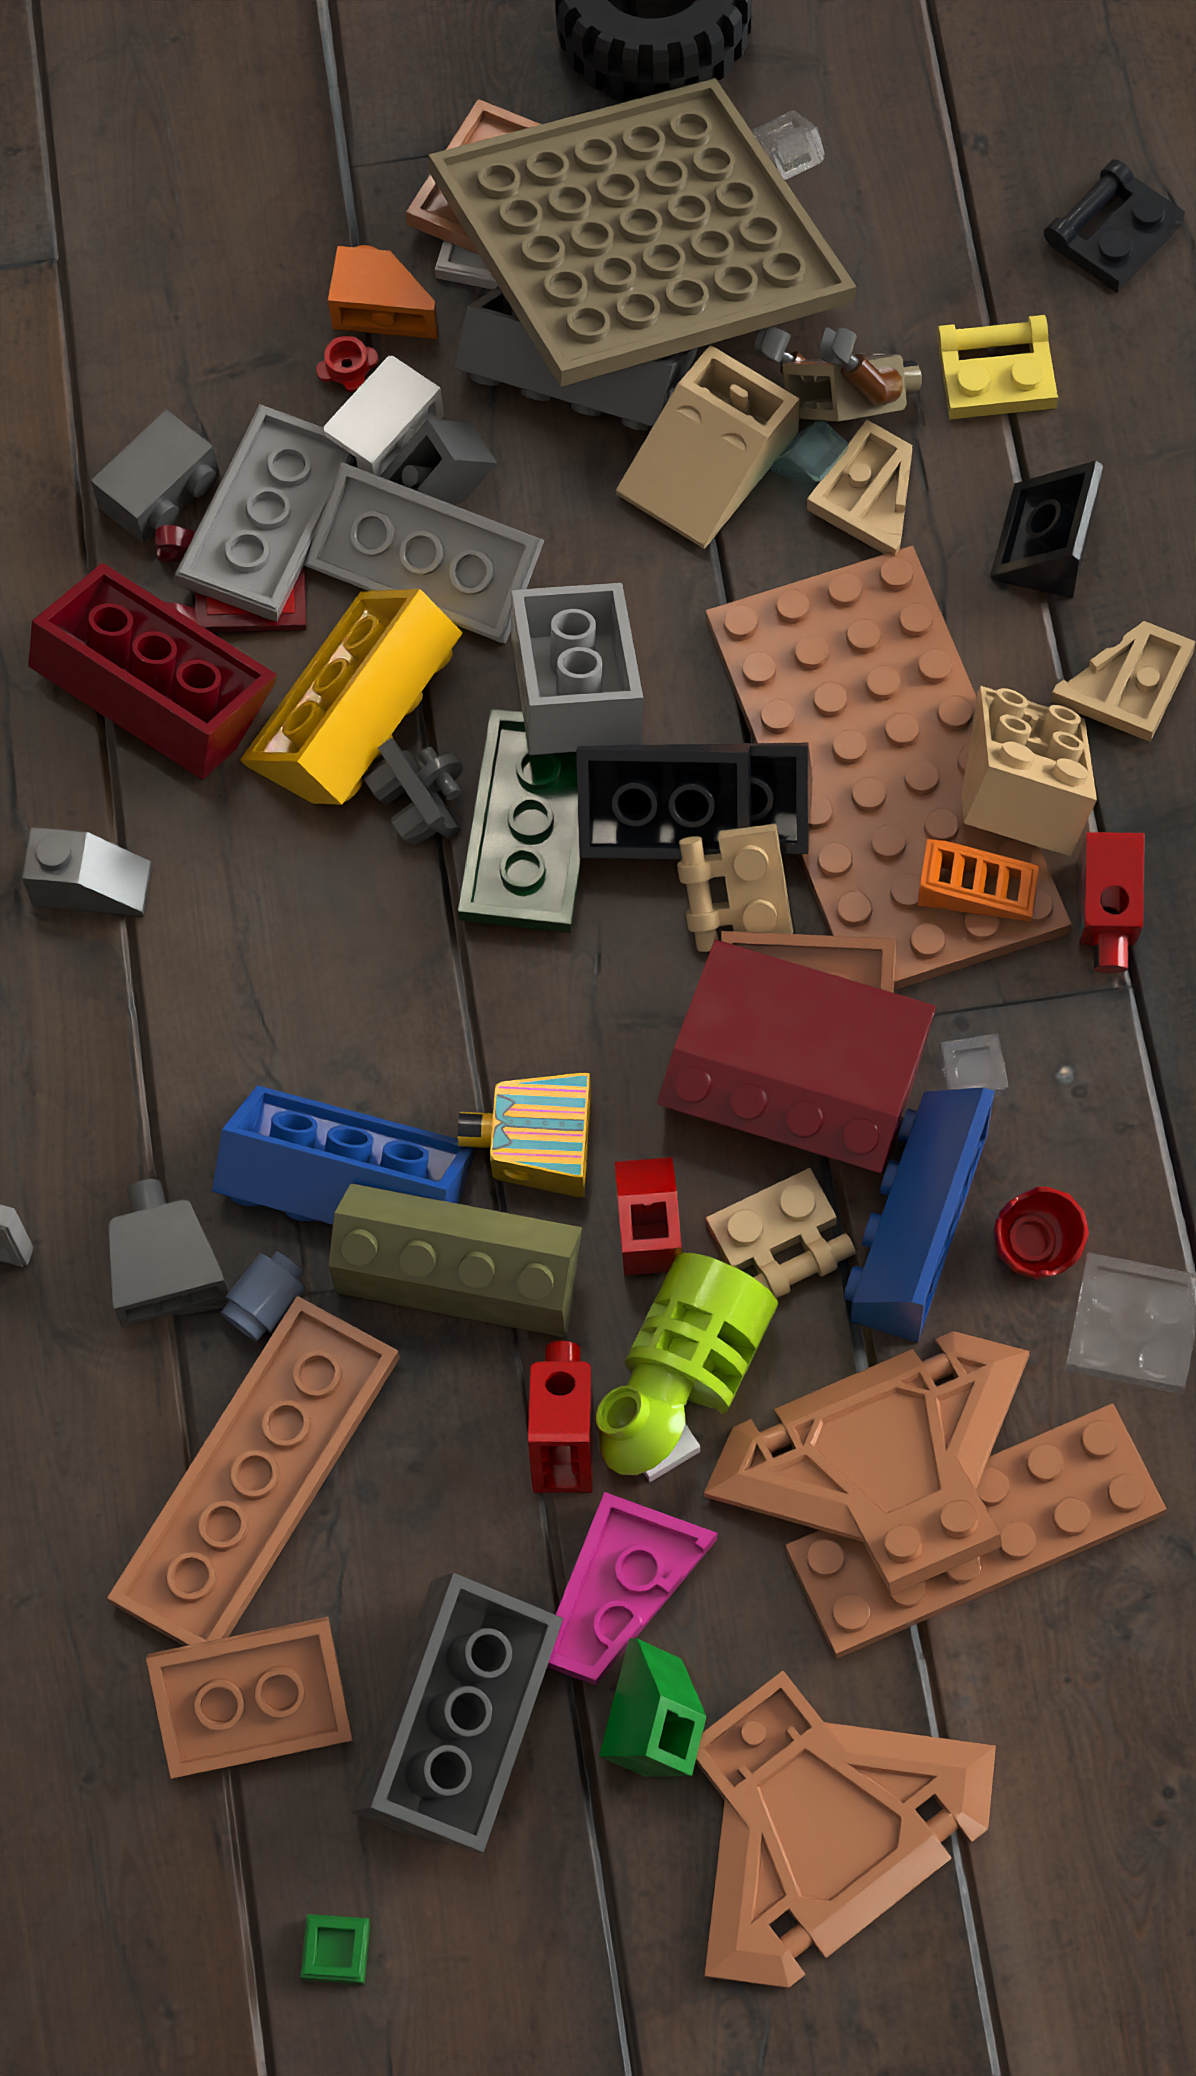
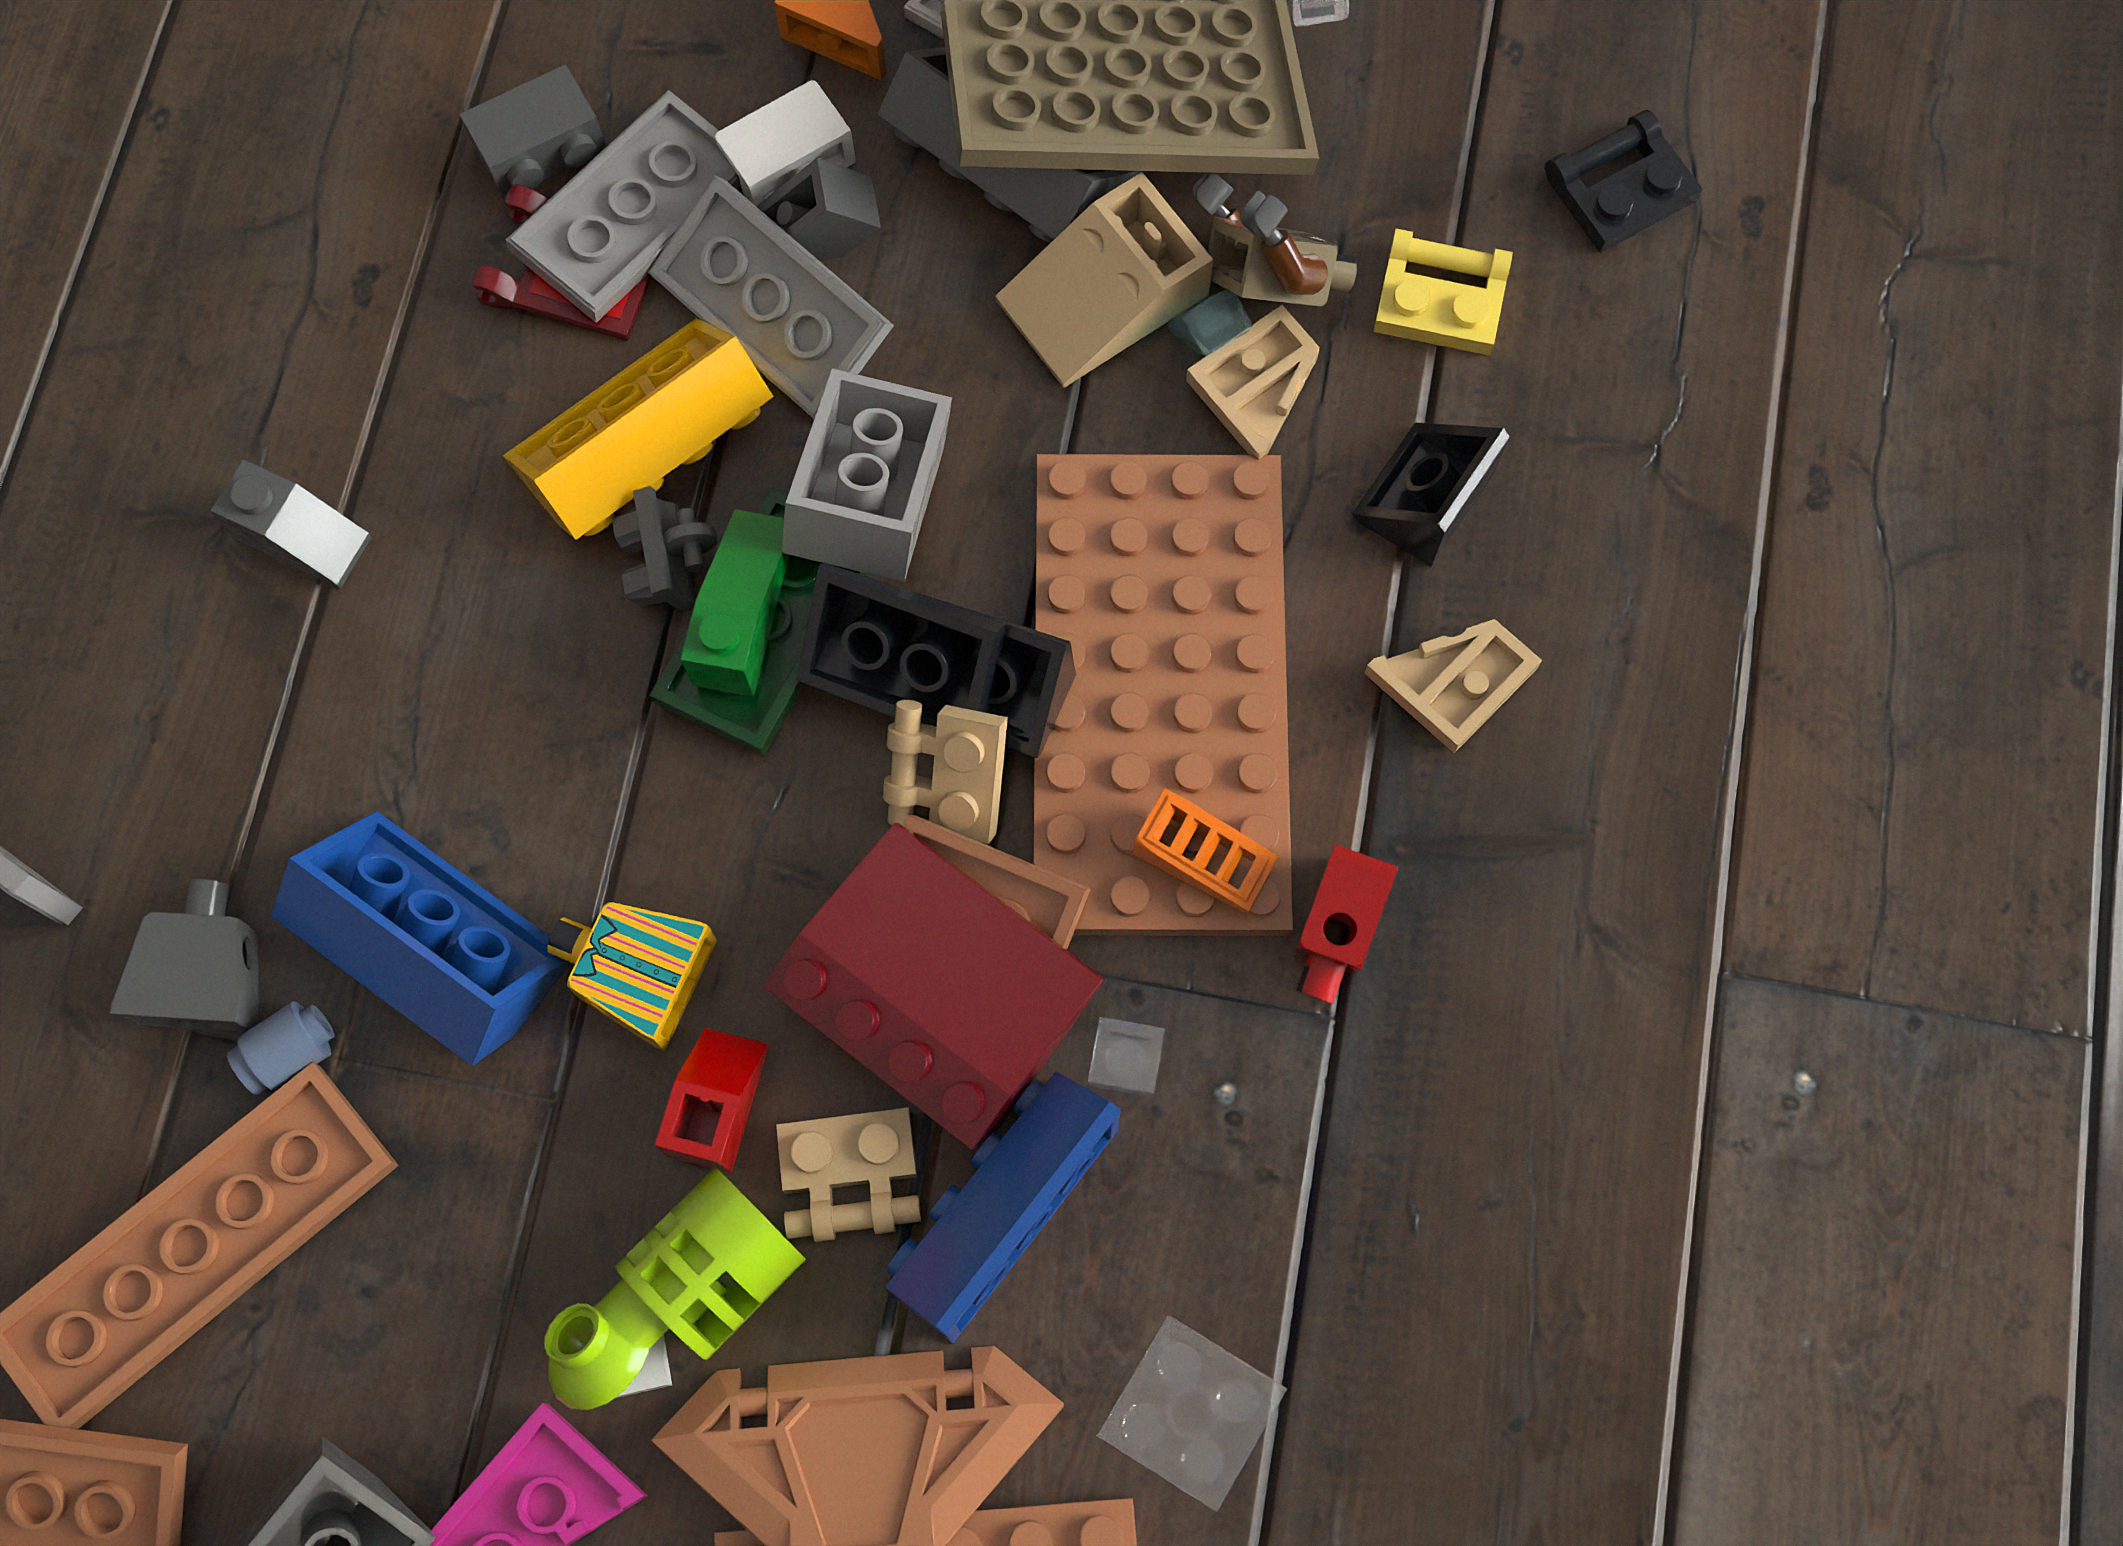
camera: 15 degrees right, 5 degrees up
(149, 669) = (441, 330): dark red slope -> none
(344, 350) = (775, 62): red plate -> none
(454, 1259) = (481, 1079): olive slope -> none
(508, 809) = (736, 606): none -> green slope
(561, 1421) = (510, 1322): red torso -> none
(1028, 771) = (1305, 747): tan slope -> none
(1040, 1233) = (1124, 1275): red hair -> none

